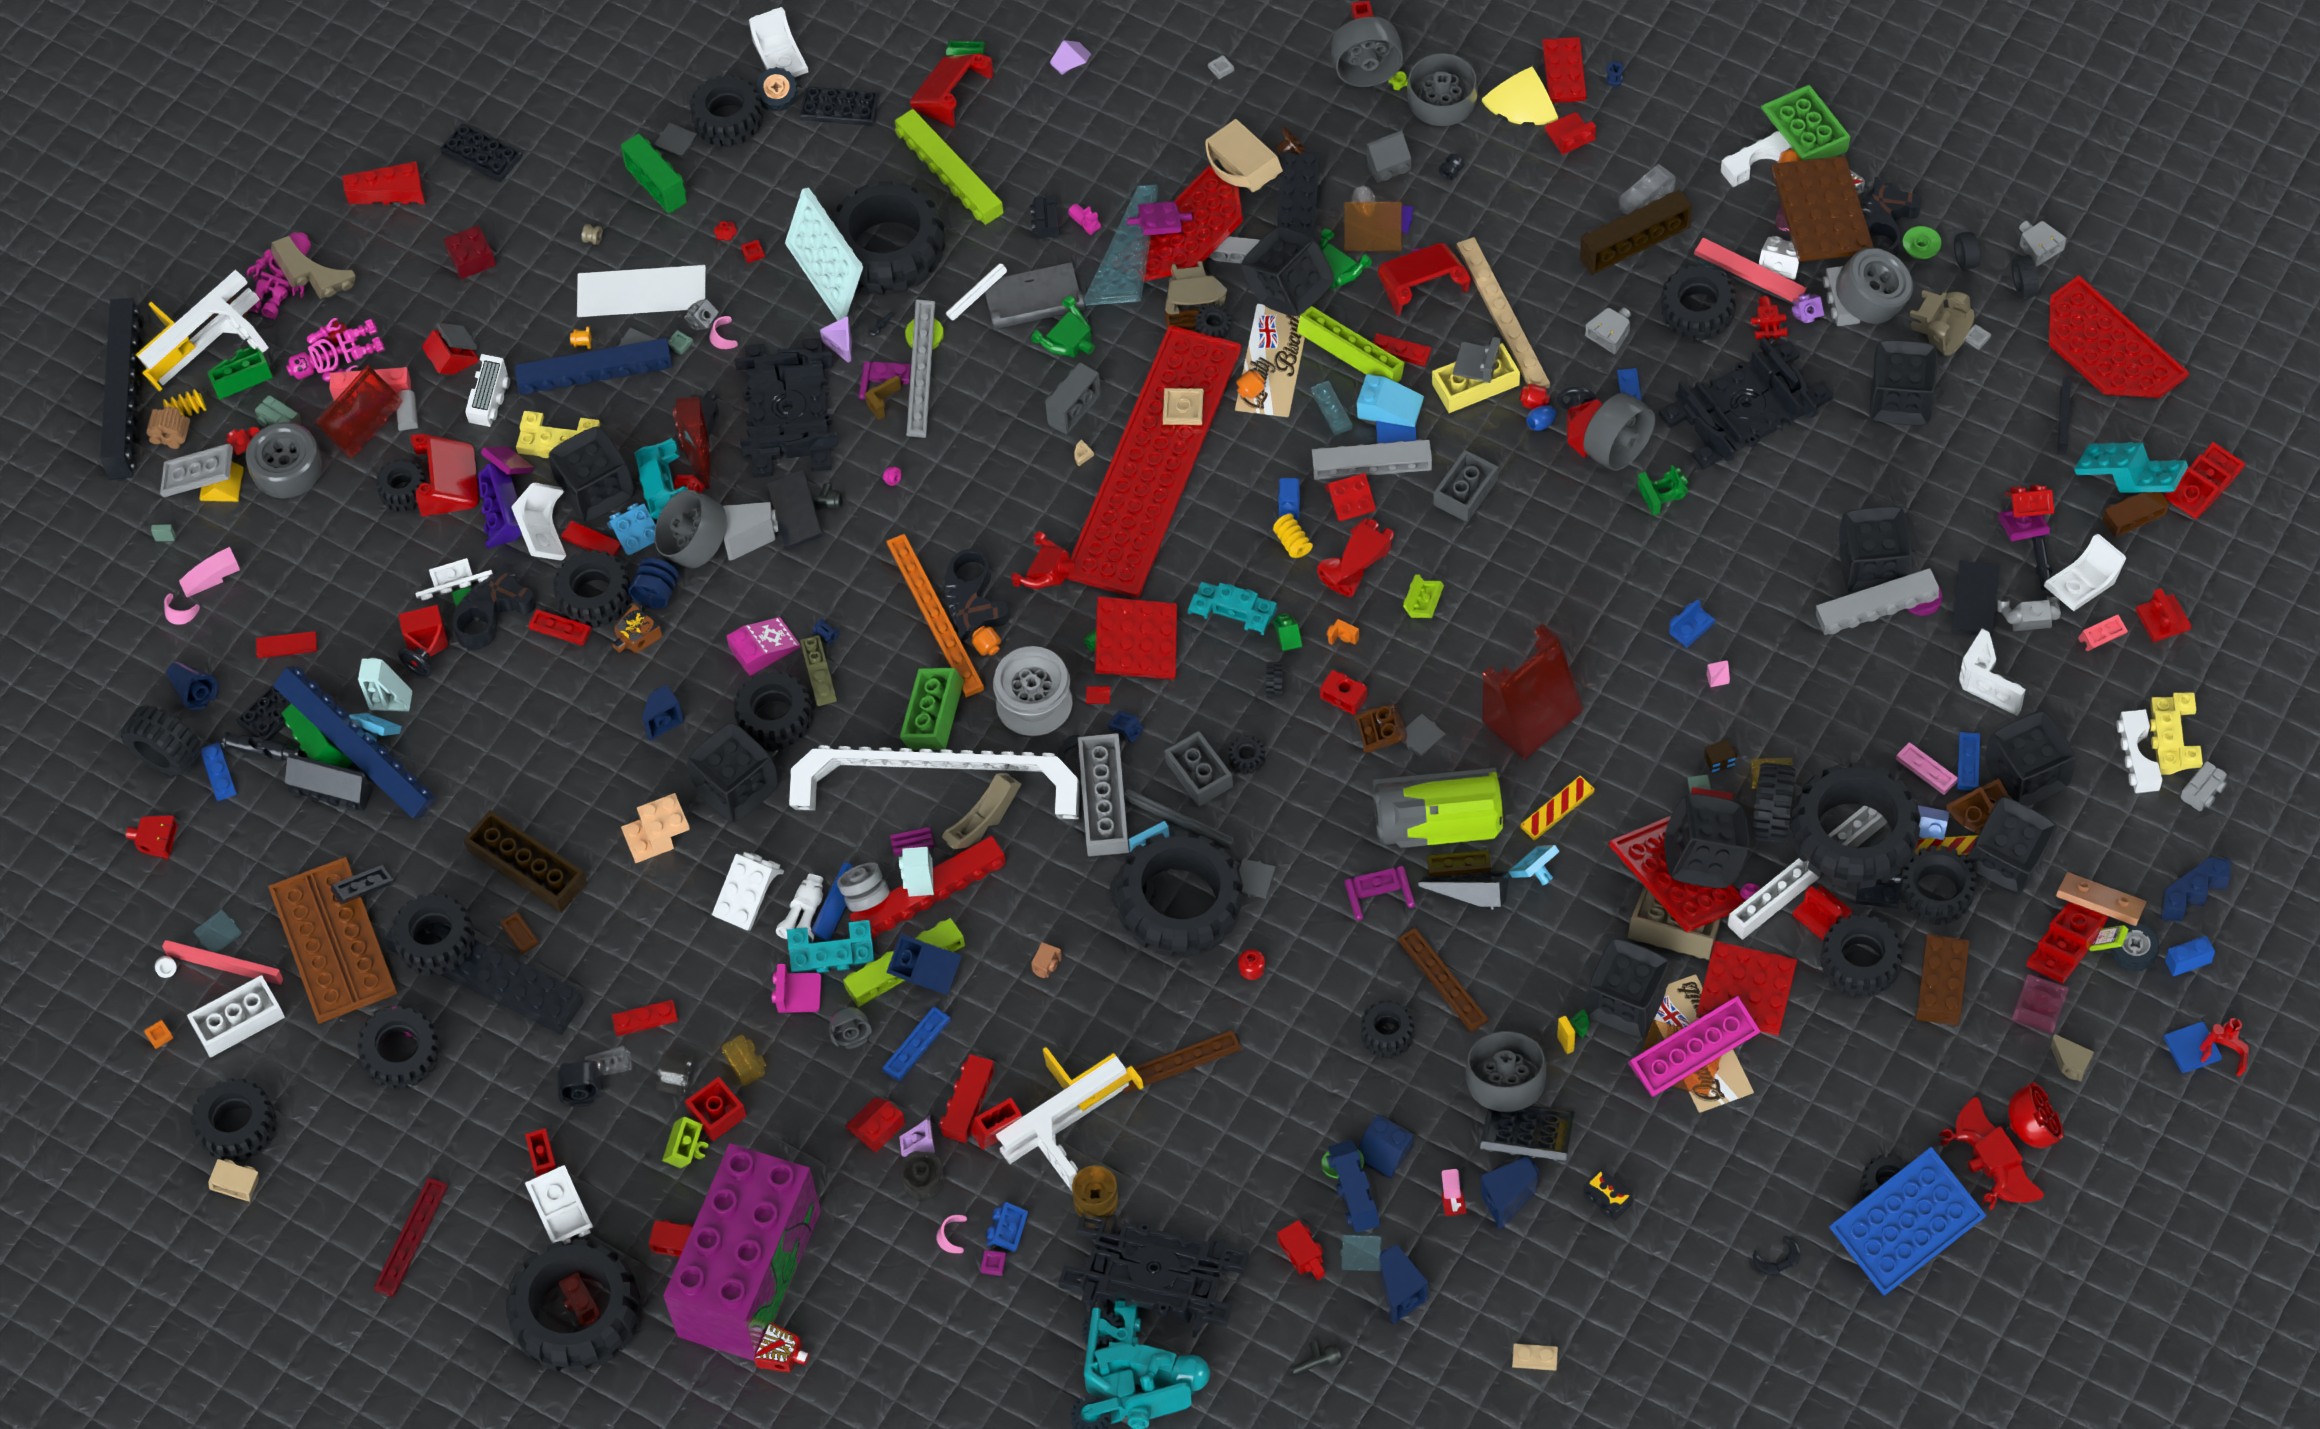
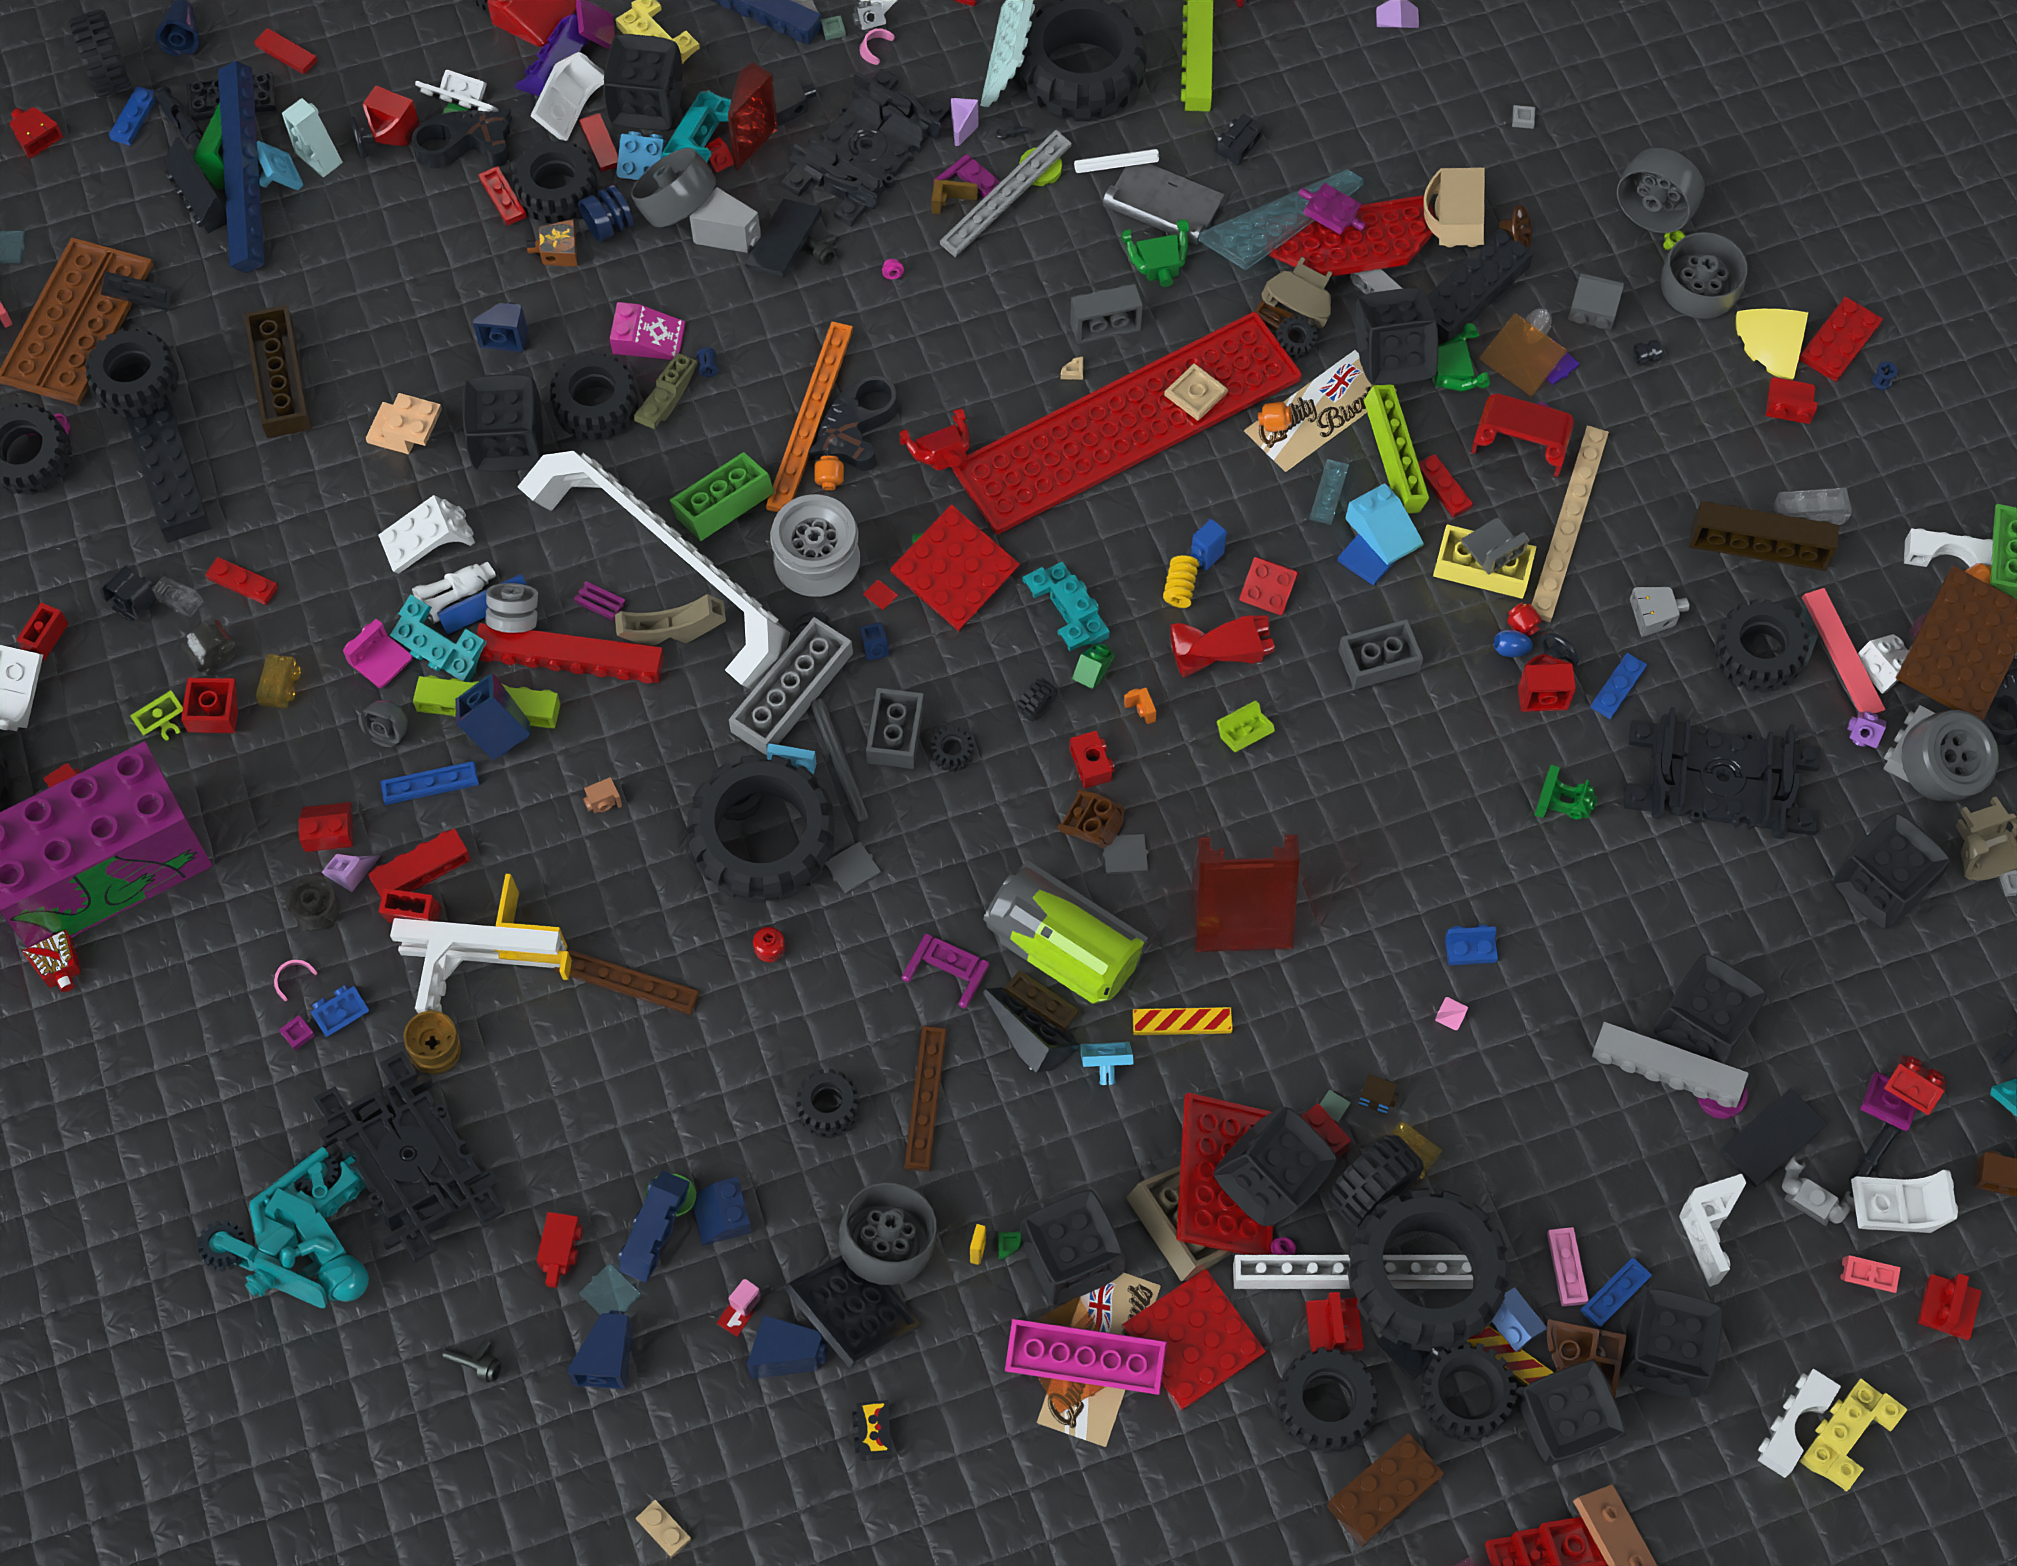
camera: 35 degrees right, 5 degrees up
(519, 933) = (219, 429): reddish brown tile -> none
(917, 871) = (559, 628): light aqua wedge -> none
(1085, 218) = (1272, 164): dark pink bar -> none
(1361, 9) = (1698, 154): red brick -> none
(1371, 459) = (1320, 565): light grey brick -> none
(1619, 431) = (1565, 710): dark grey wheel -> none
(1768, 320) = (1817, 713): red piece -> none
(2204, 786) = (1832, 1512): light grey brick -> none

